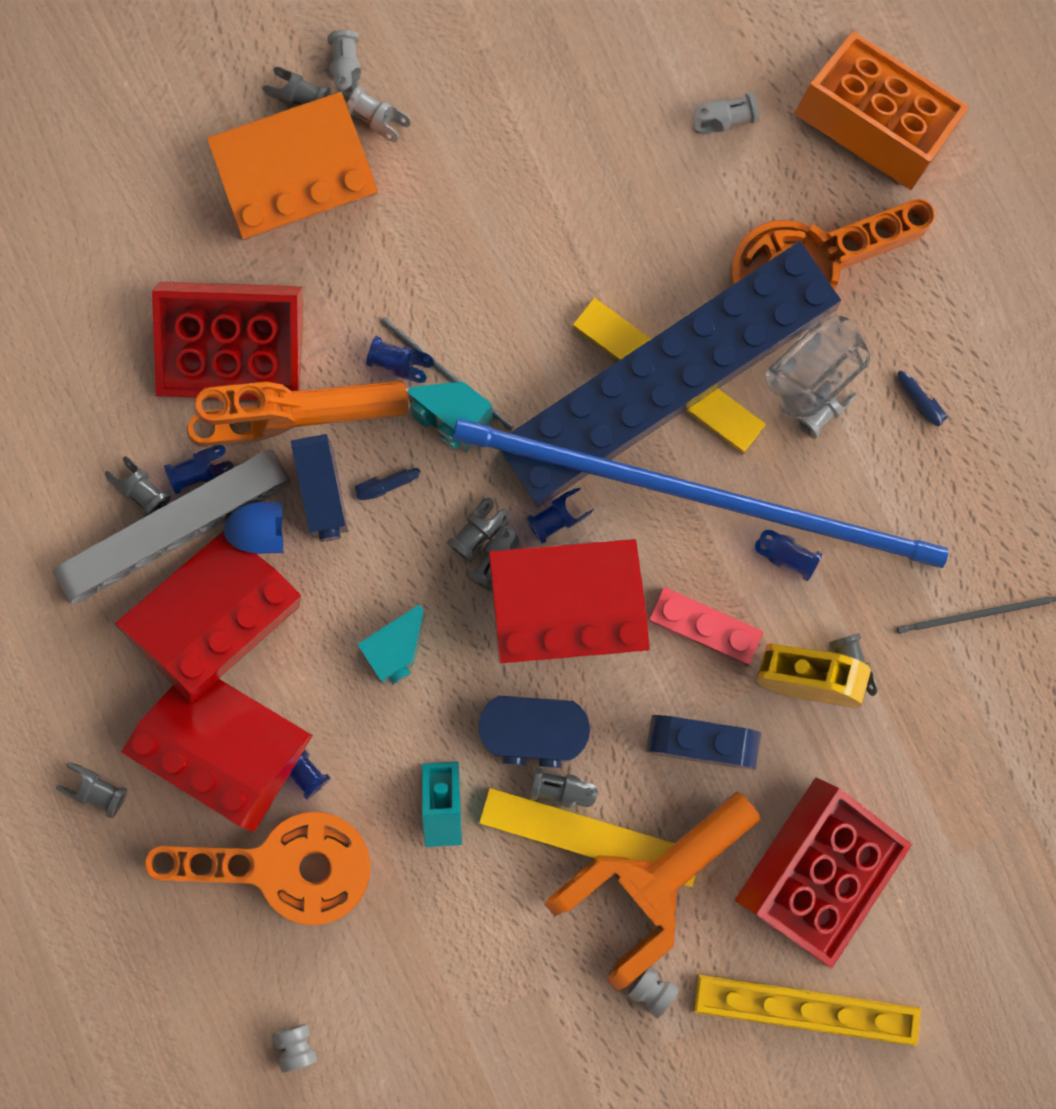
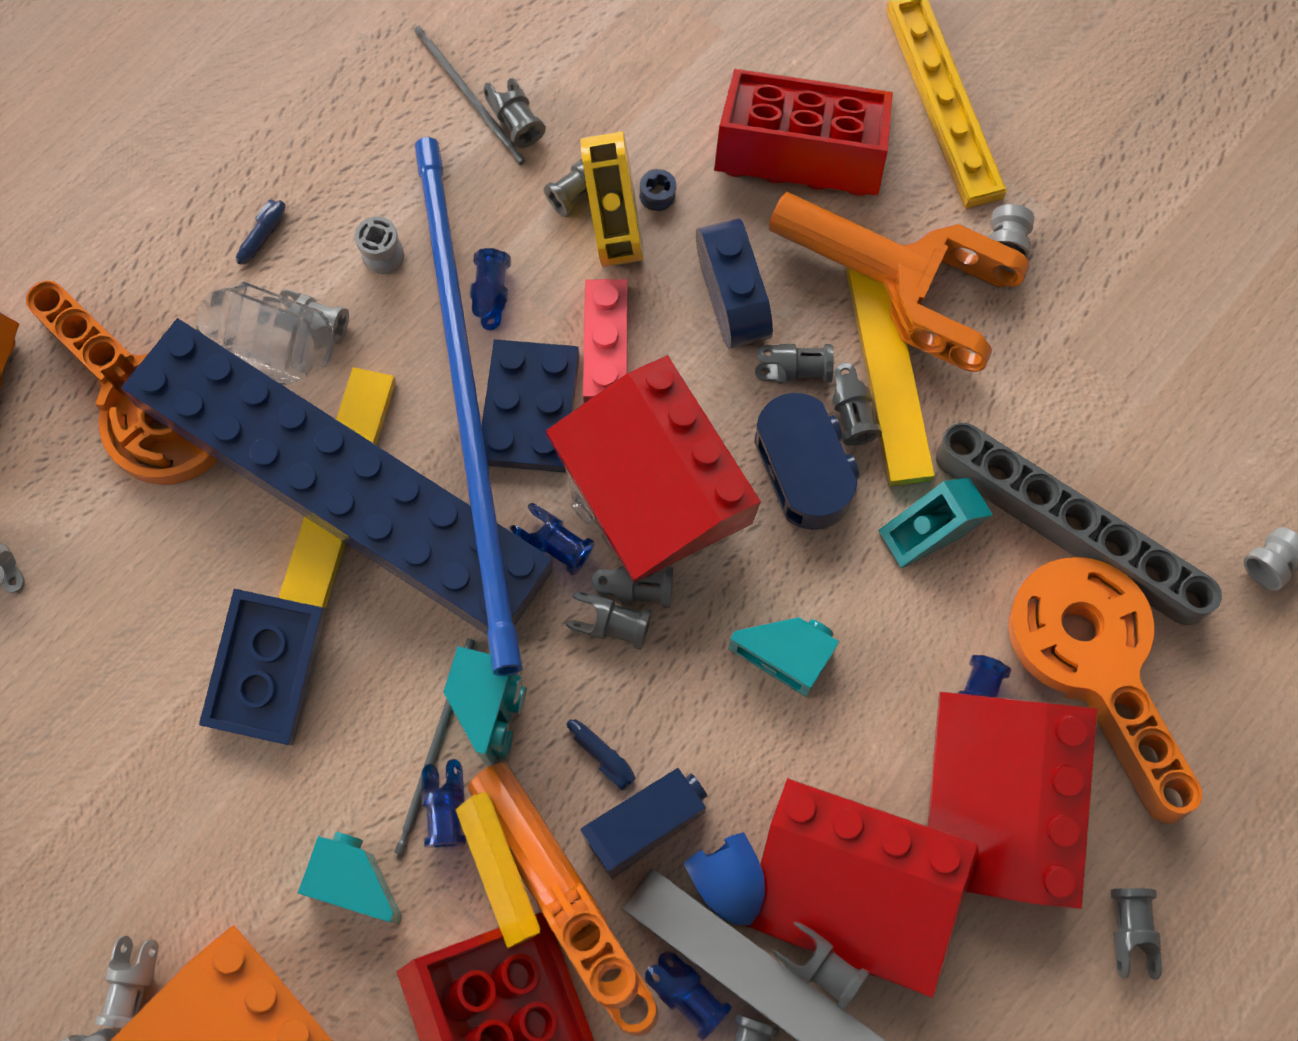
camera: 110 degrees left, 10 degrees down
(167, 562) = (828, 970): none -> dark grey piece
(332, 375) = (497, 870): none -> yellow tile
(376, 279) = (348, 878): none -> teal slope
(378, 921) = (1097, 523): none -> dark grey beam
(553, 274) = (263, 667): none -> dark blue plate
(619, 758) = (790, 363): none -> dark grey piece
(680, 544) = (526, 395): none -> dark blue plate
(811, 727) = (665, 198): none -> dark blue bush
(858, 488) = (379, 245): none -> light grey wheel
(941, 640) = (514, 110): none -> dark grey piece

